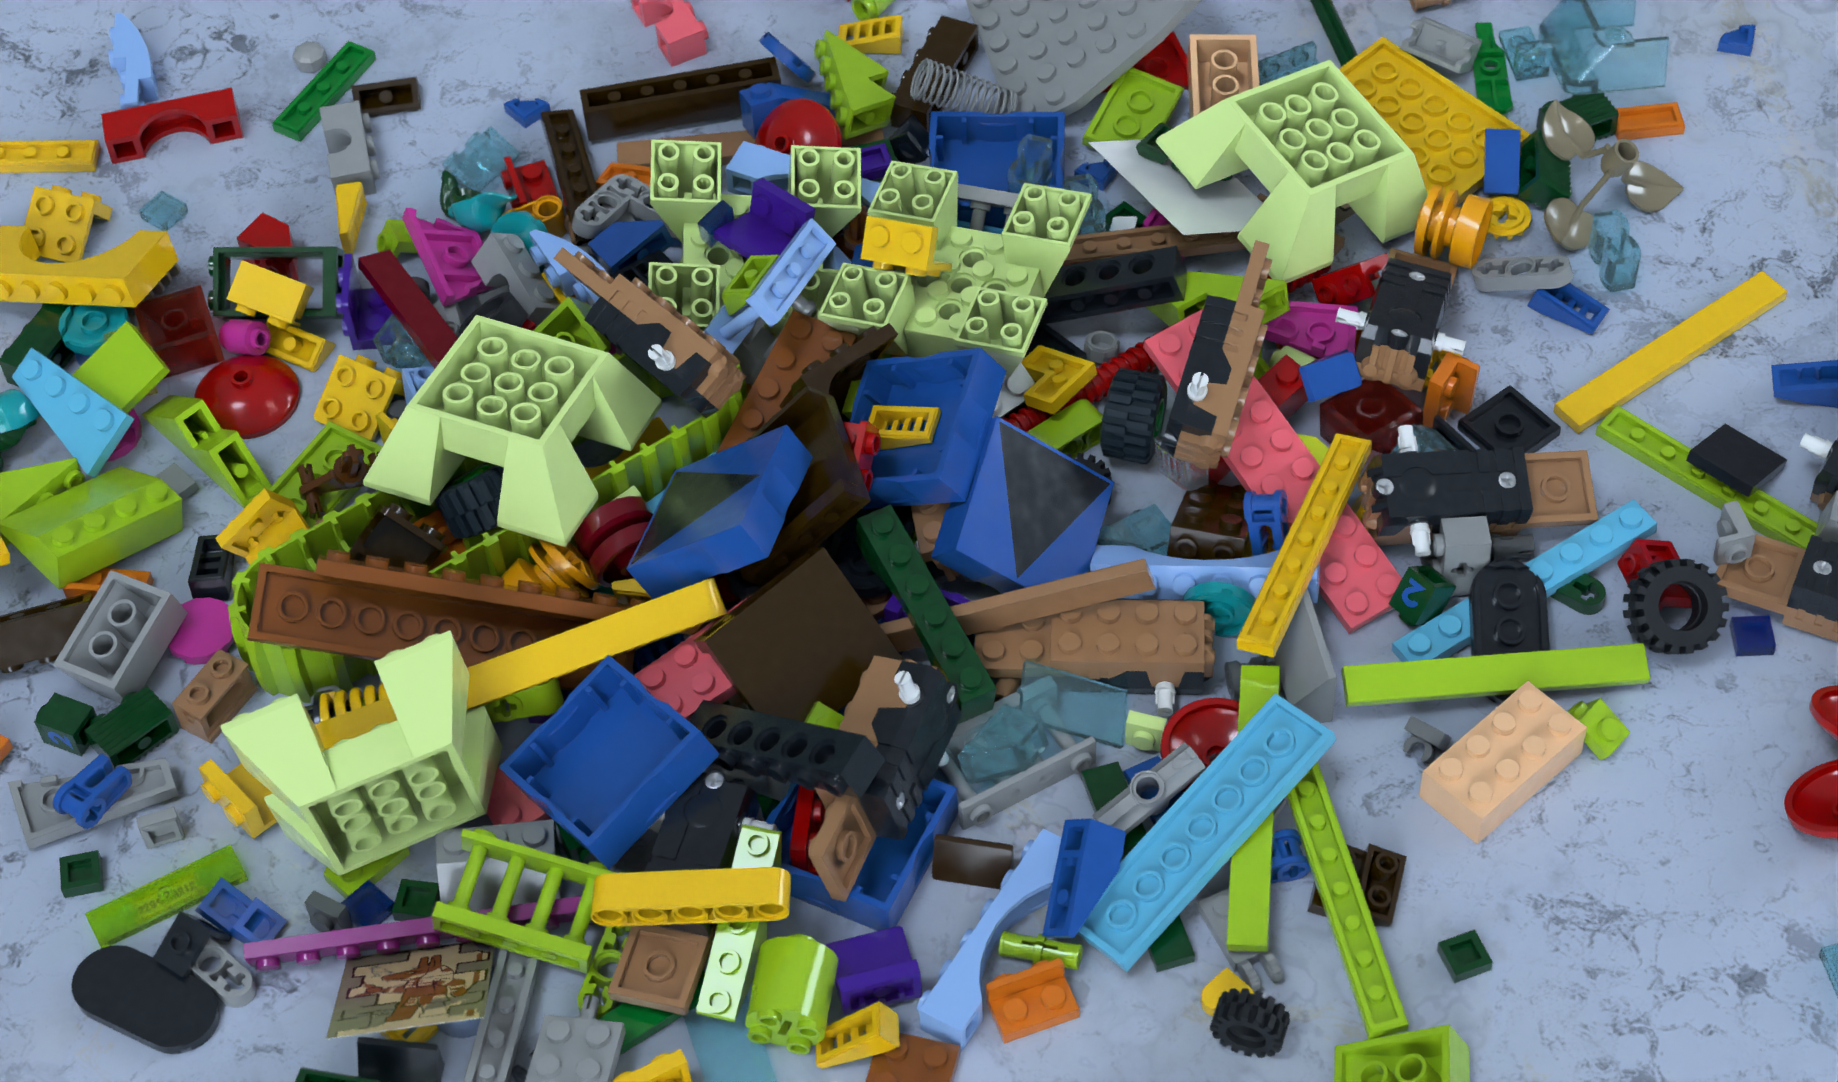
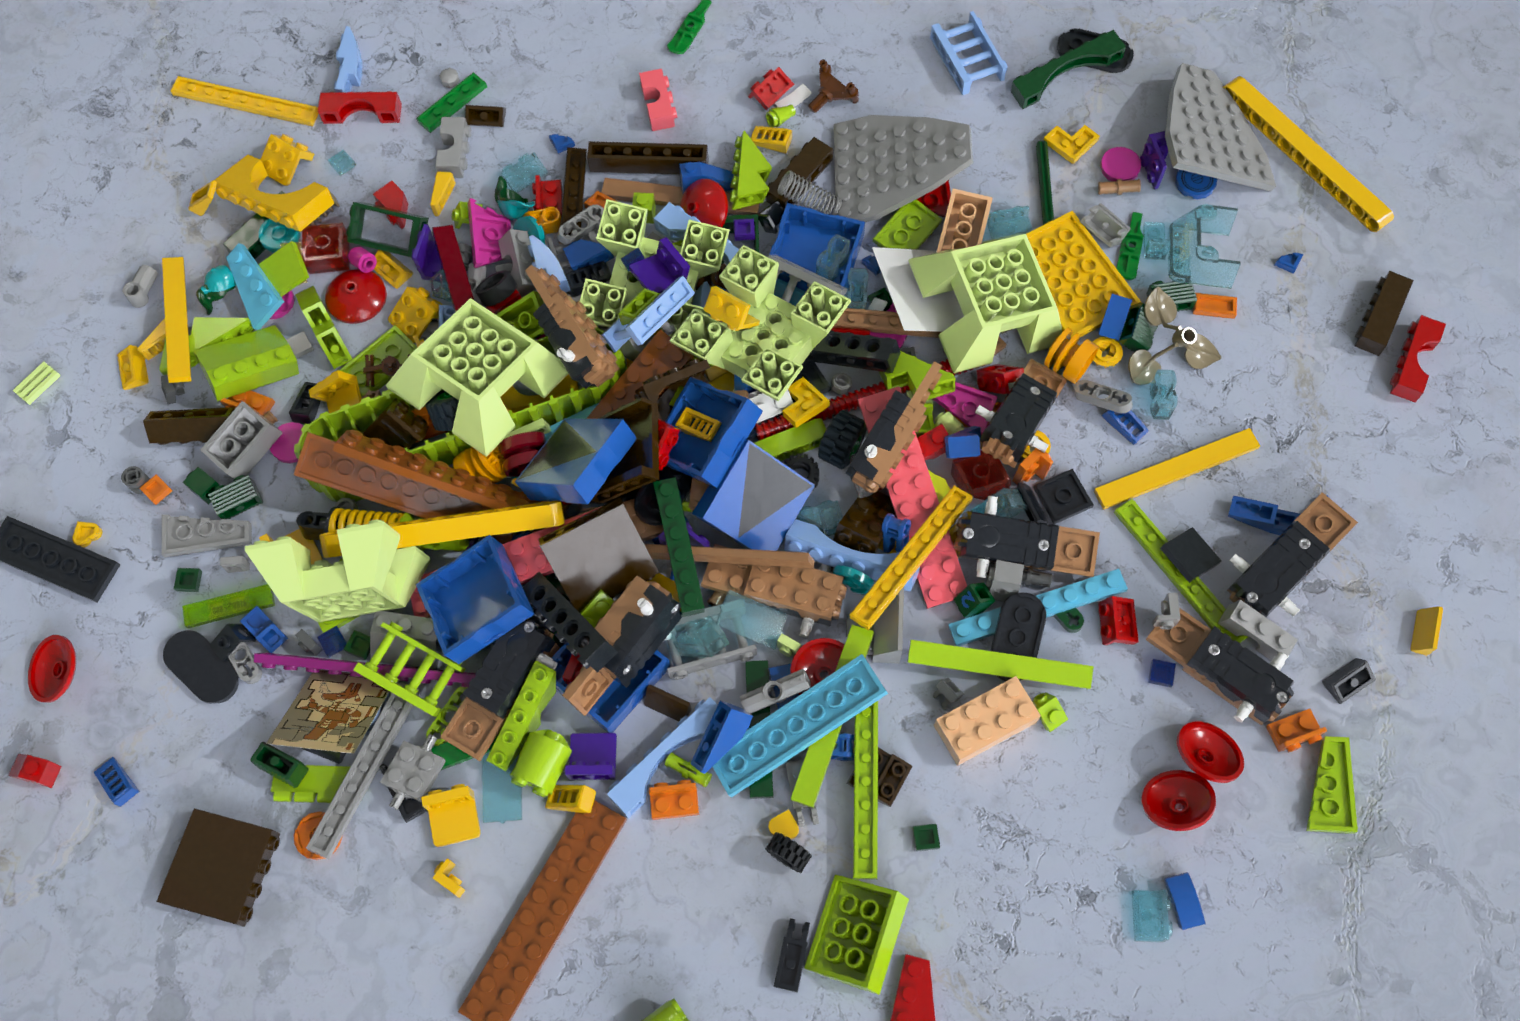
camera: 15 degrees right, 15 degrees up
(92, 791) = (202, 534): blue piece -> none
(214, 696) = (284, 489): medium nougat hinge -> none
(270, 294) = (377, 238): yellow hinge -> none
(691, 896) = (493, 701): yellow beam -> none
(787, 57) = (716, 144): blue tile -> none
(1149, 148) = (917, 250): dark green tile -> none
(1705, 599) = (1126, 665): black tyre -> none

